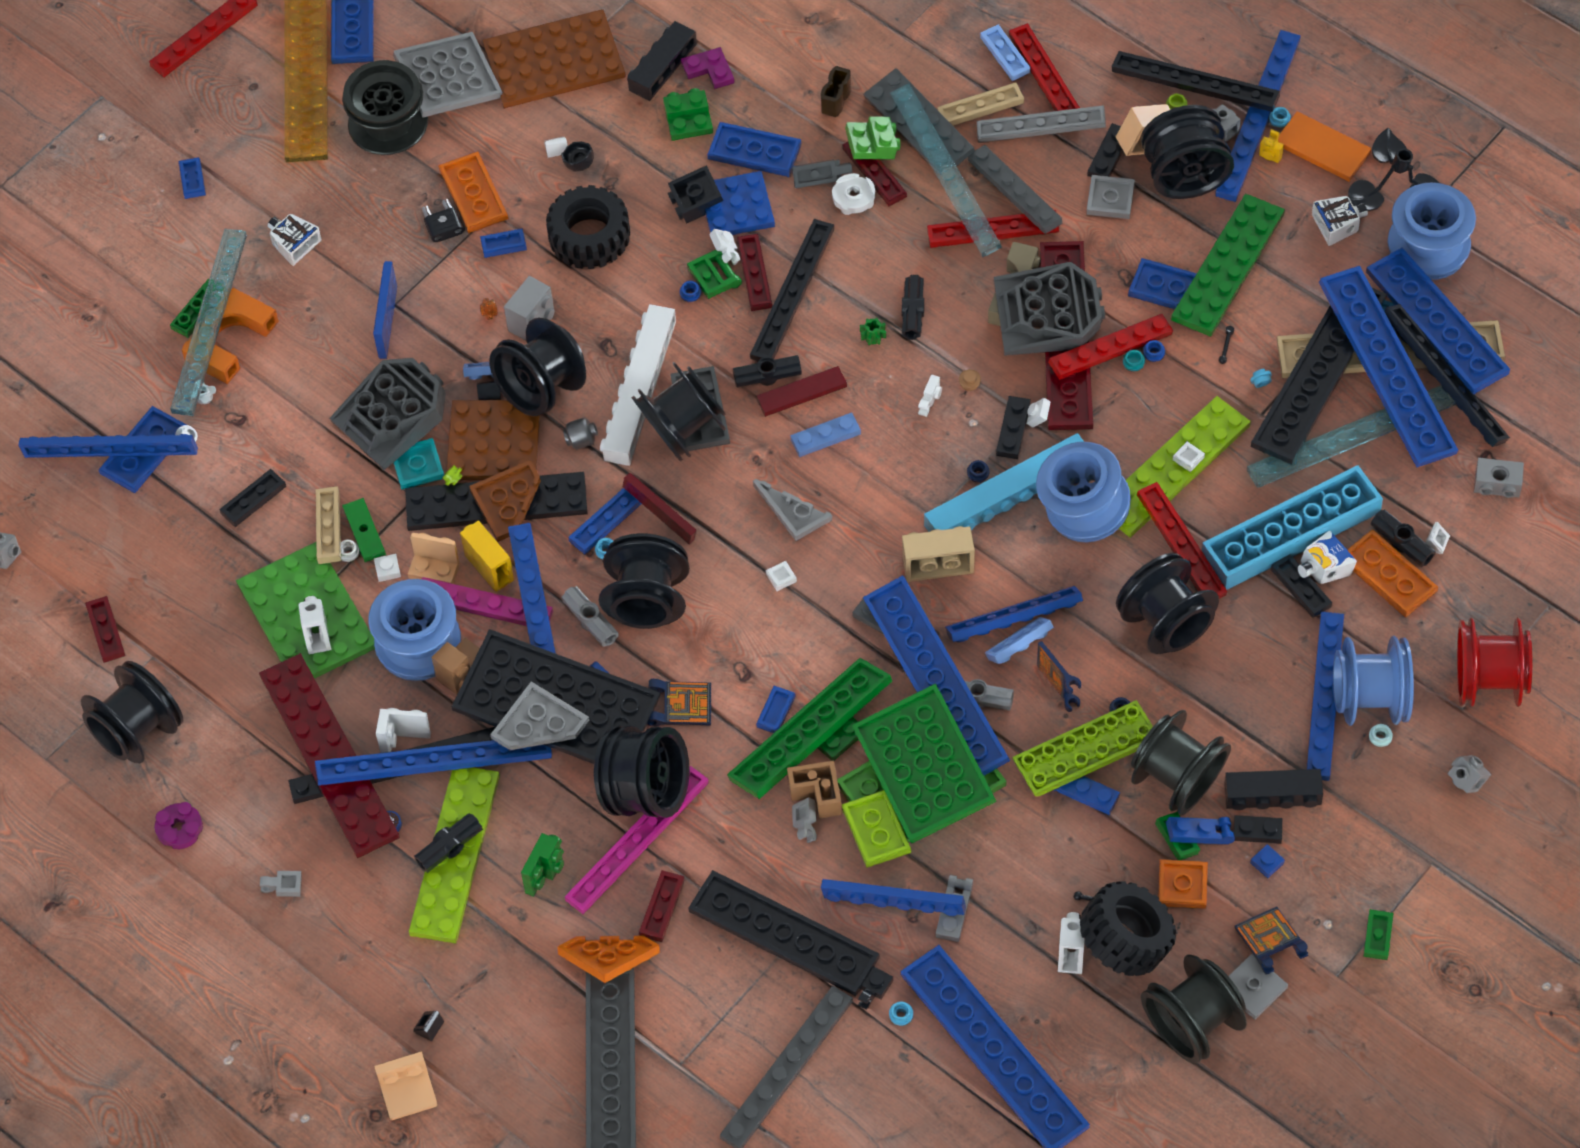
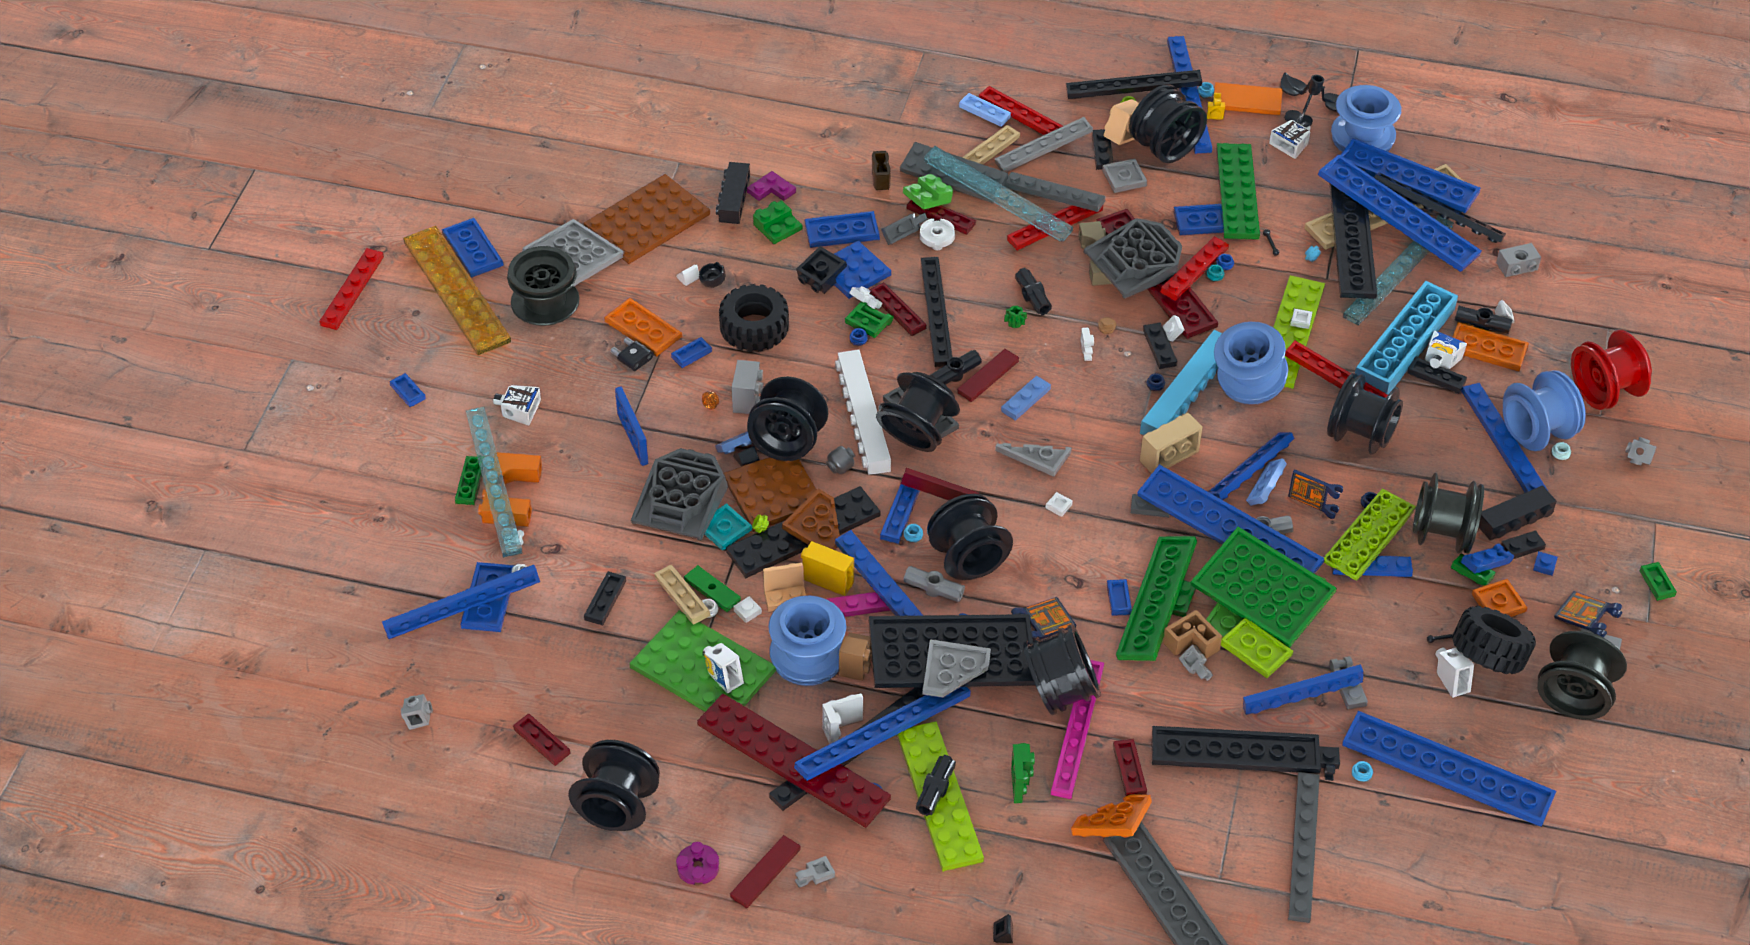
camera: 30 degrees left, 10 degrees down
(237, 861) = (765, 871): none -> dark red tile

